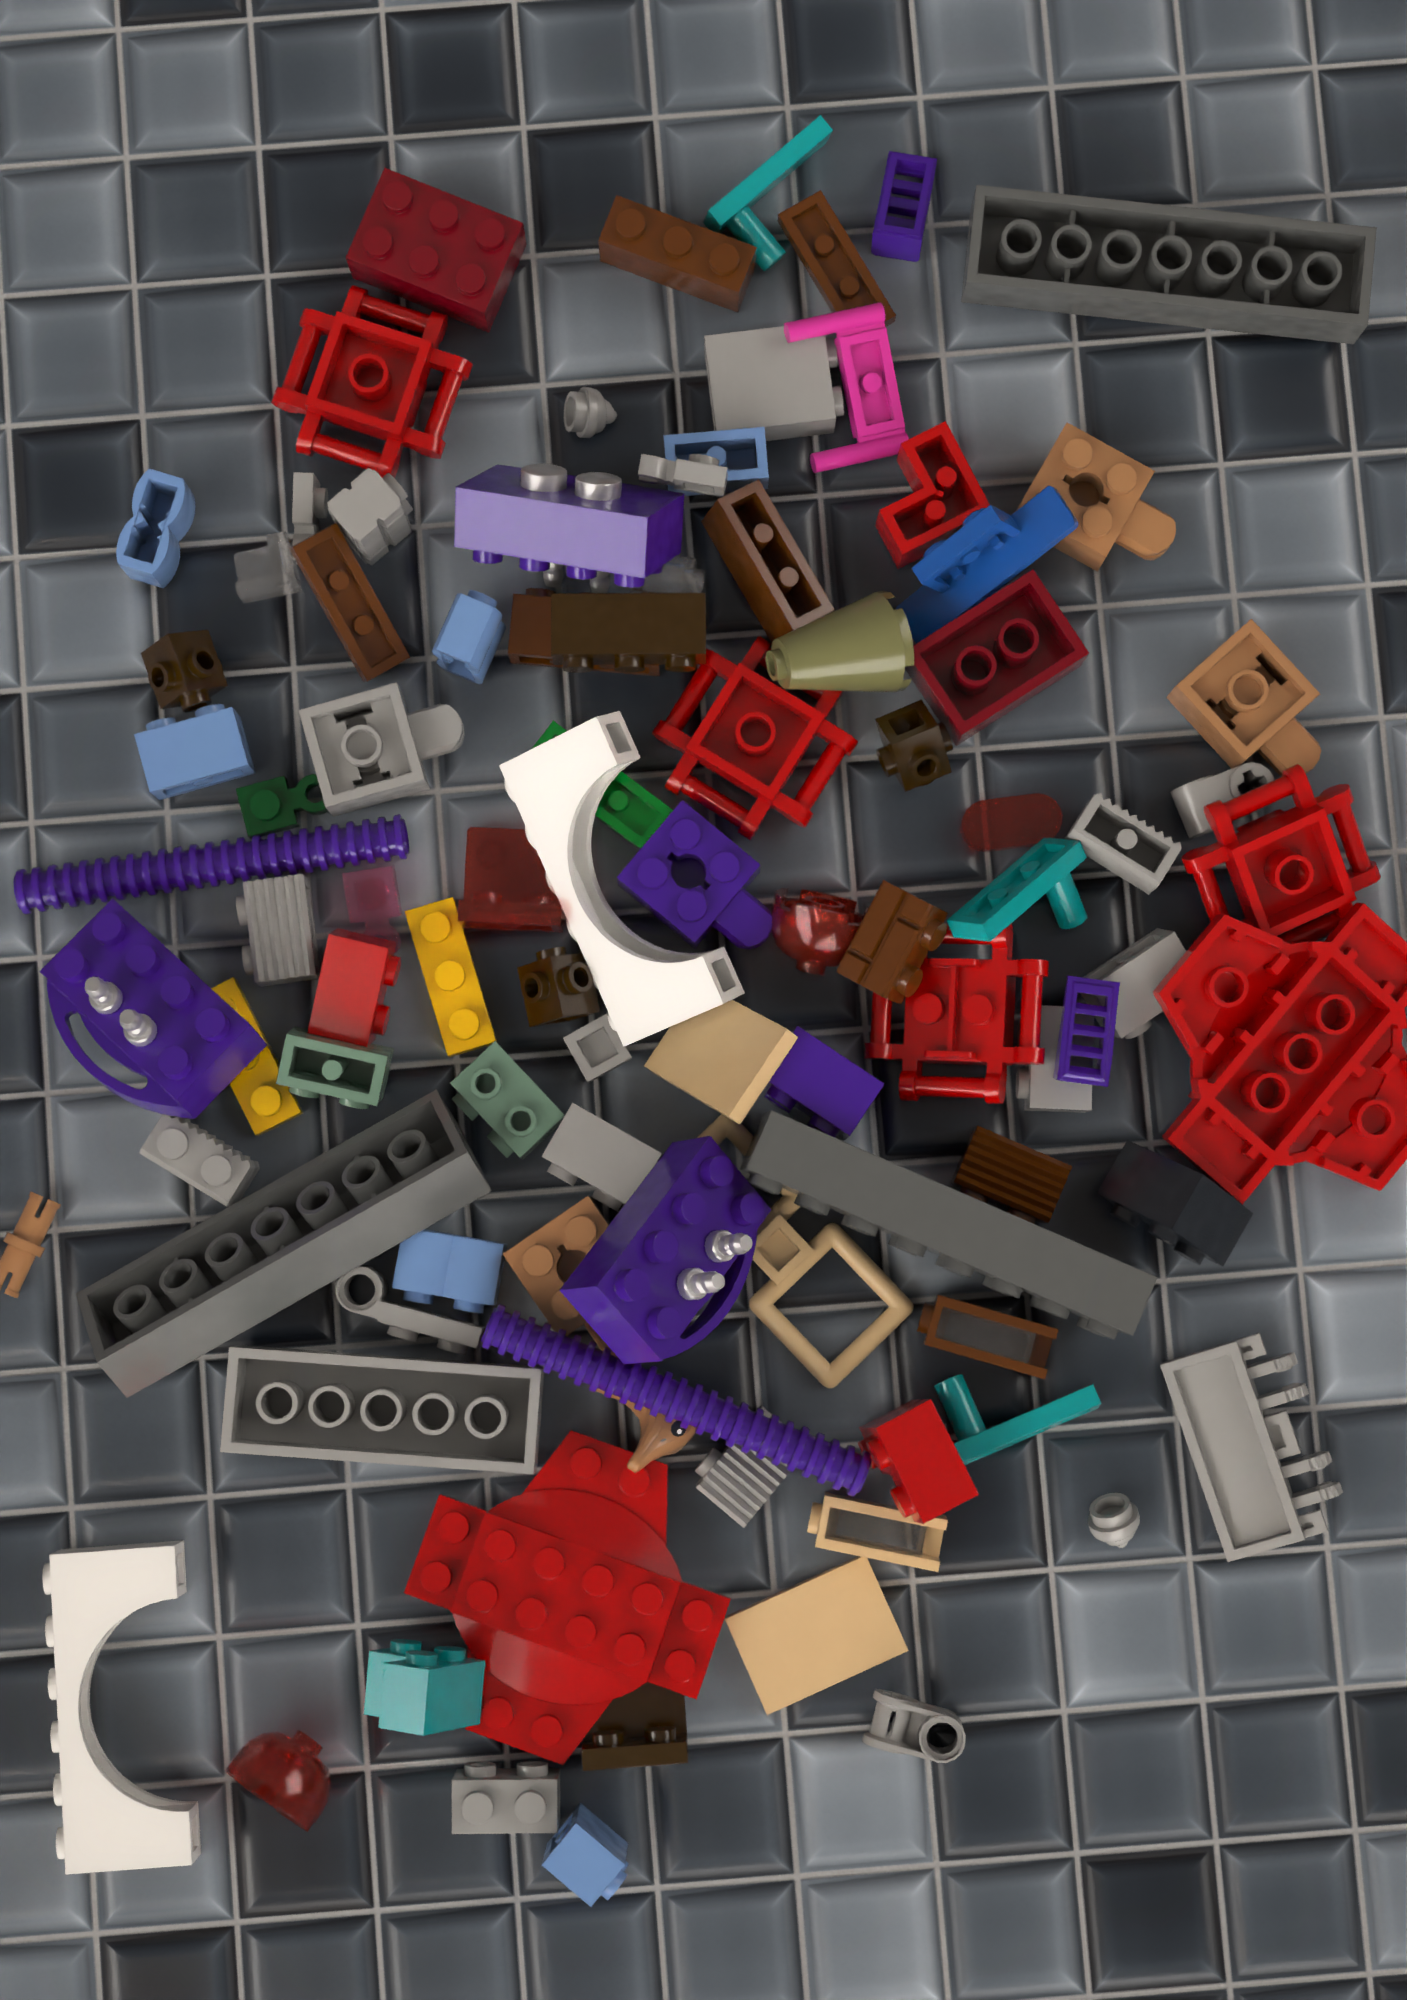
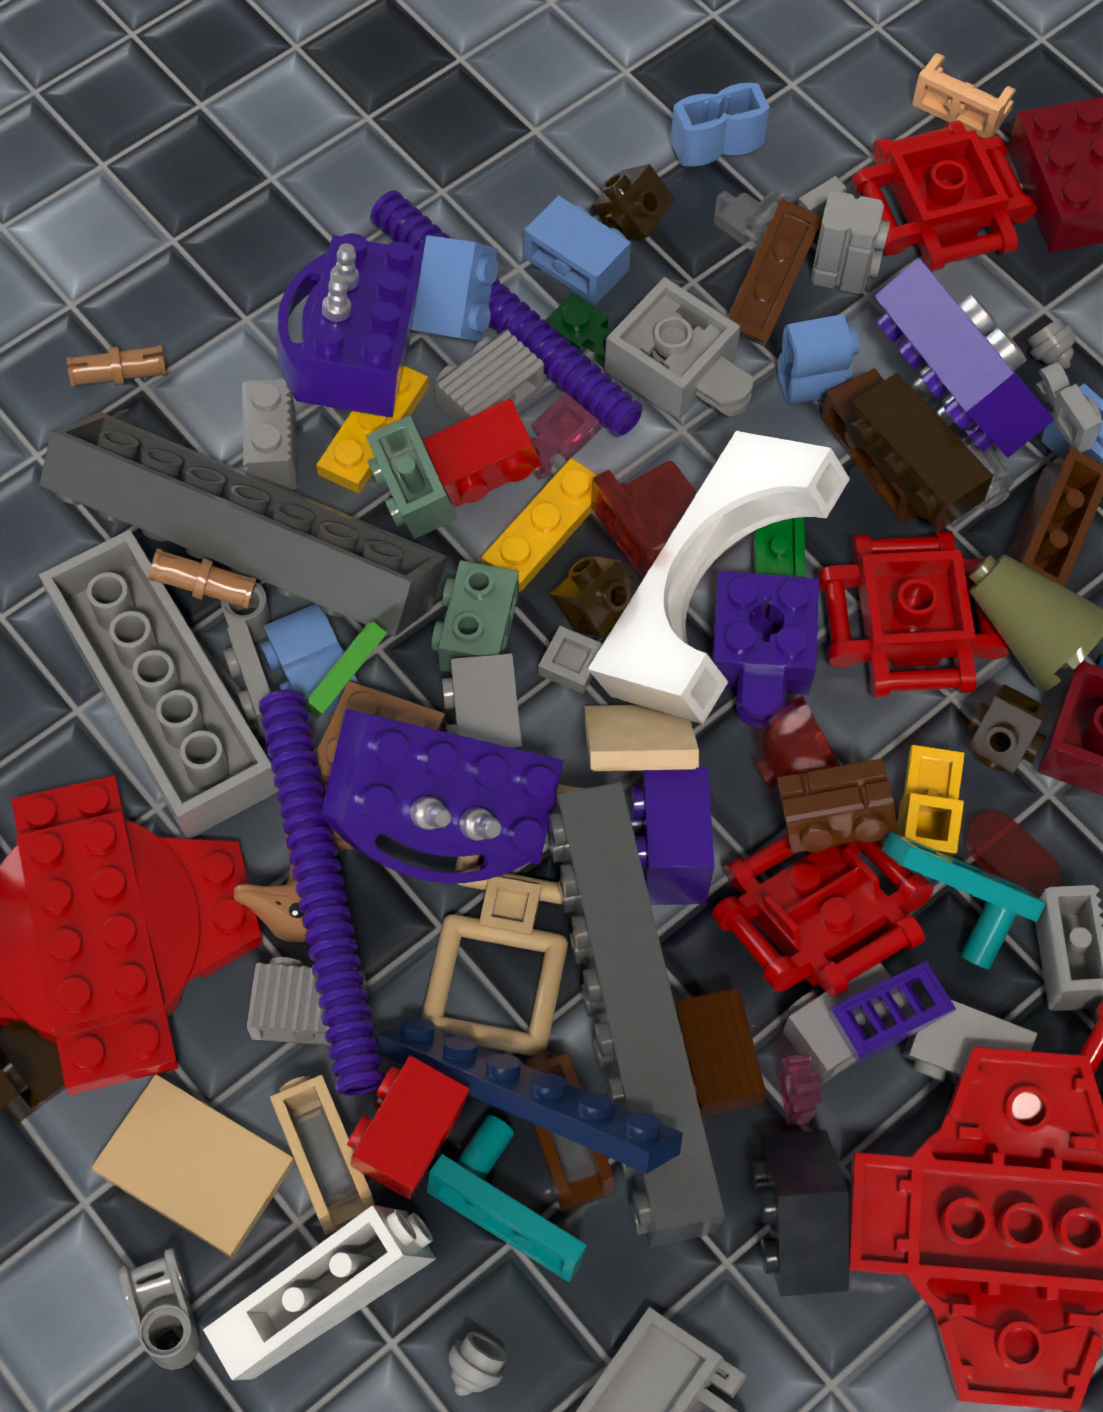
camera: 55 degrees right, 20 degrees down
(173, 899) = (455, 288): none -> medium blue brick
(278, 280) = (960, 101): none -> light nougat hinge
(325, 1317) = (202, 578): none -> medium nougat pin
(495, 1253) = (344, 669): none -> bright green tile
(931, 860) = (930, 798): none -> yellow brick
(960, 1355) = (536, 1096): none -> dark blue plate
(988, 1601) = (321, 1290): none -> white slope
(1081, 1135) = (798, 1088): none -> clear pink plate

